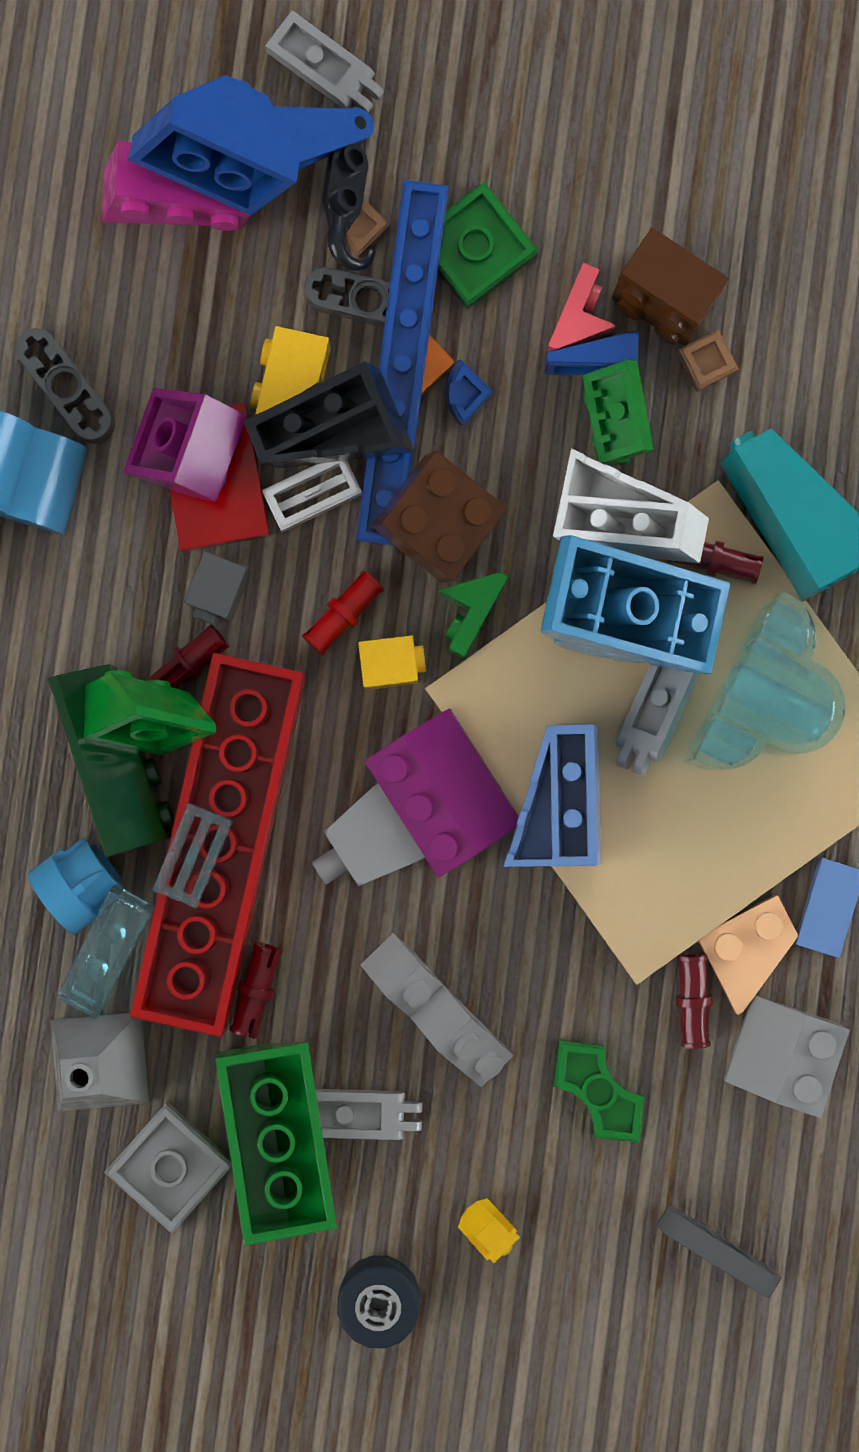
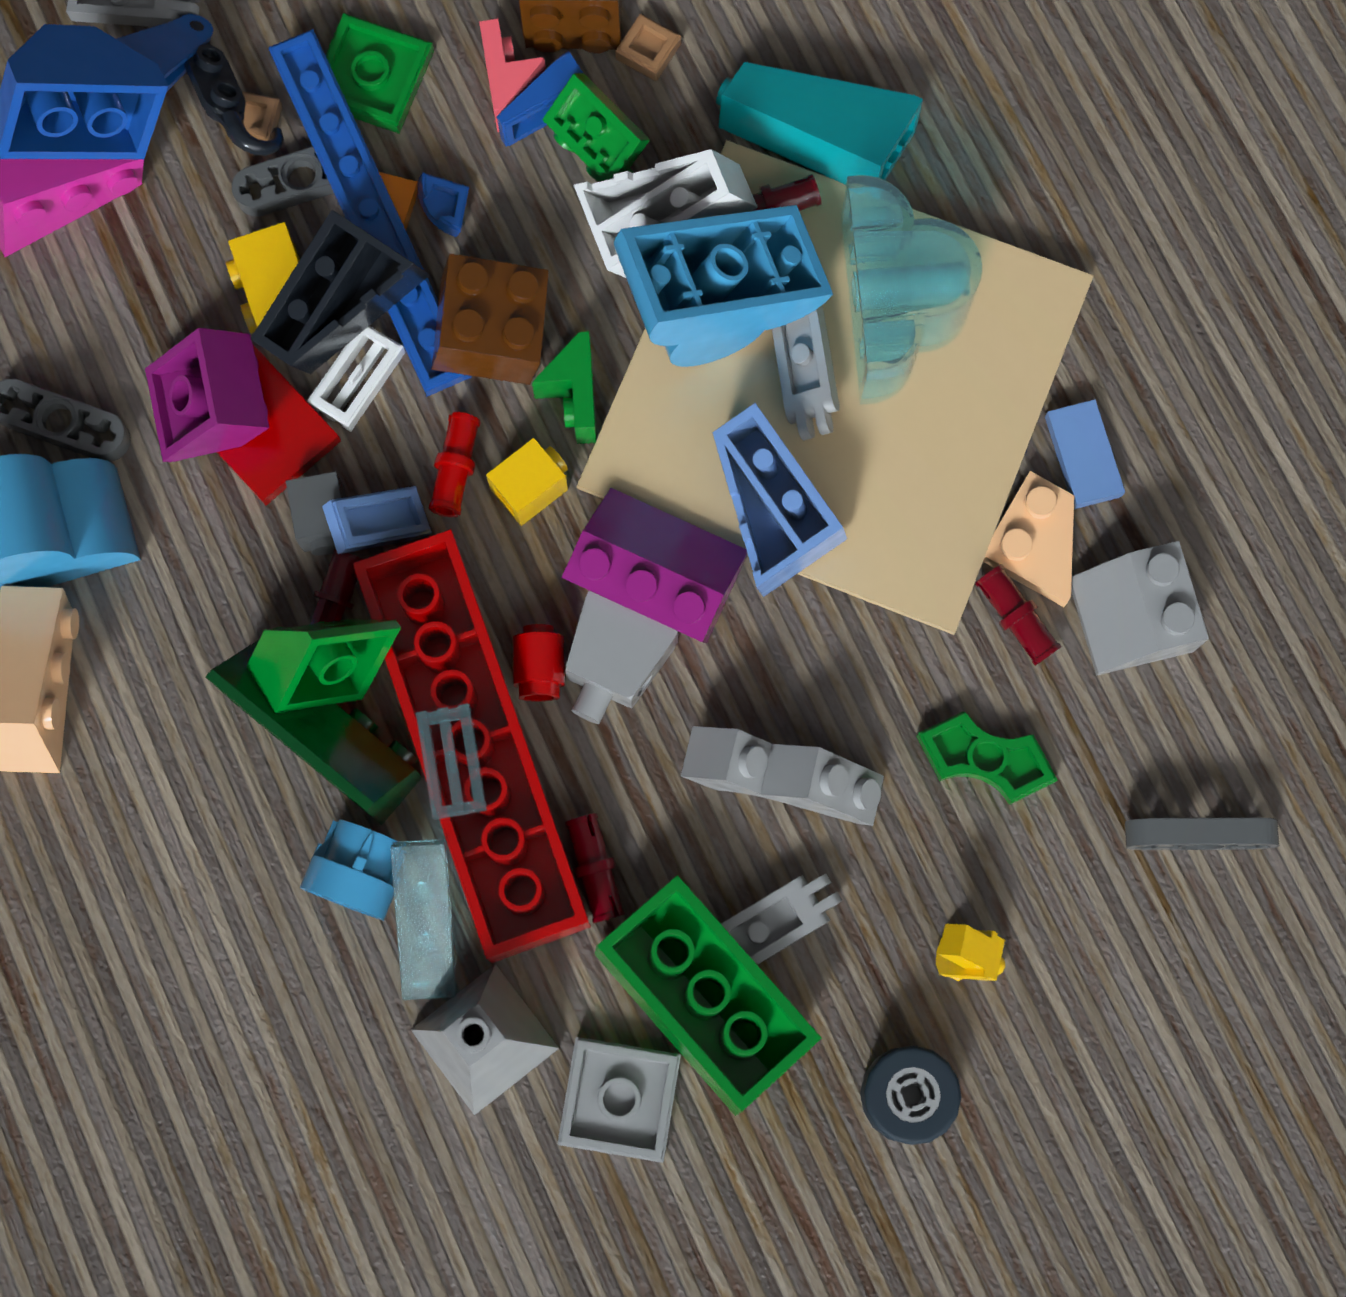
camera: 30 degrees left, 10 degrees down
(255, 623) = (376, 519): none -> medium blue tile
(309, 810) = (538, 663): none -> red brick

